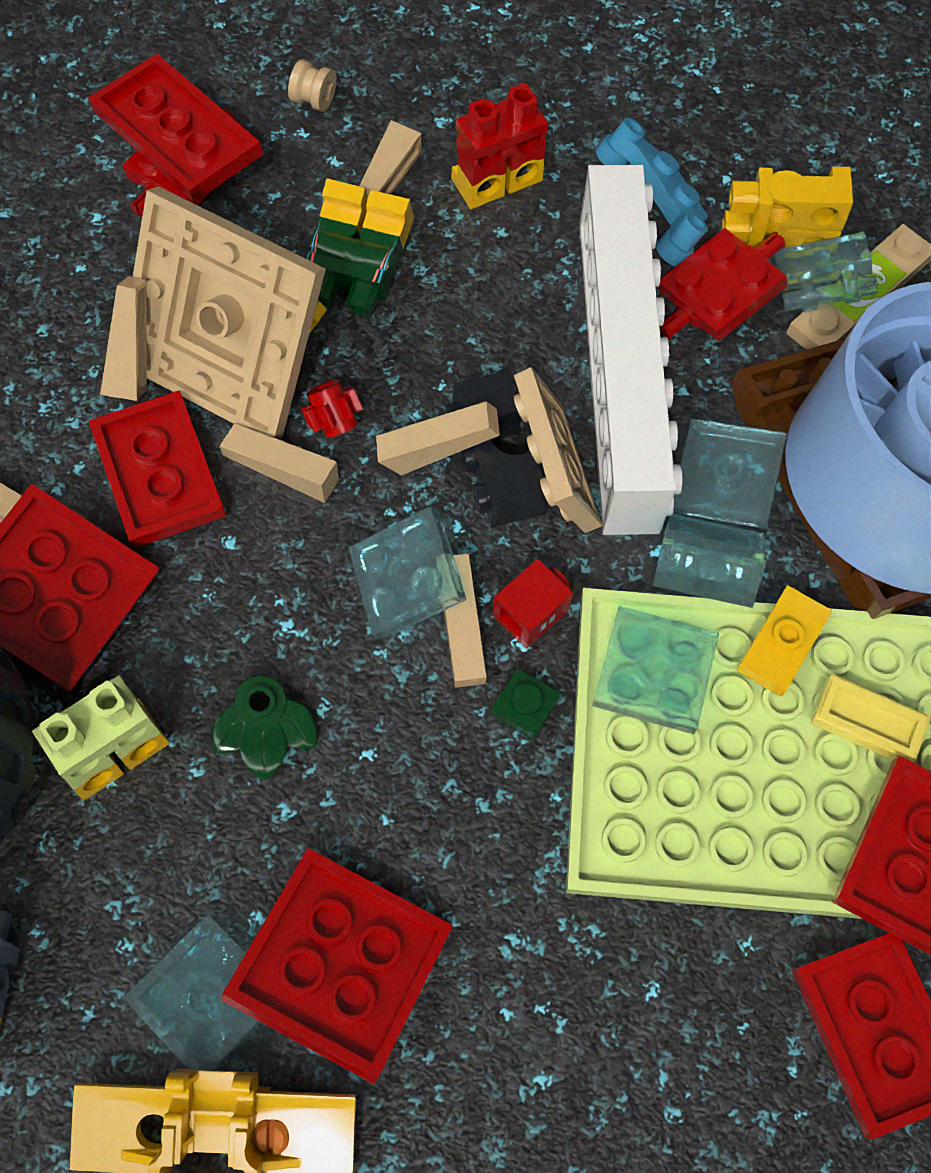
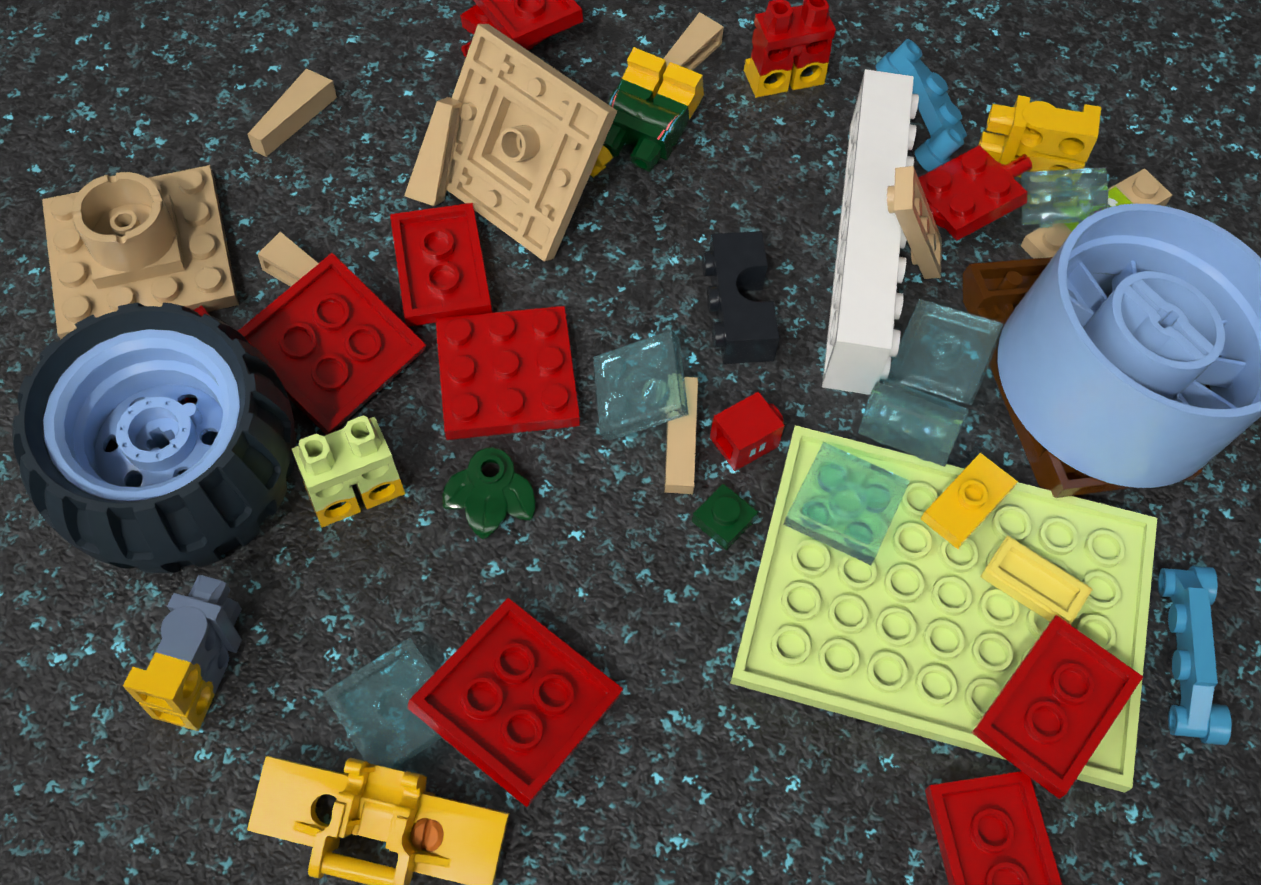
camera: 10 degrees right, 5 degrees down
(255, 582) = (506, 373): none -> red plate
(282, 461) = (550, 277): tan piece -> none
(332, 408) = (601, 239): red gear -> none
(437, 438) = (688, 276): tan piece -> none
(556, 450) = (793, 305): tan plate -> none
(675, 335) = (916, 220): none -> tan plate

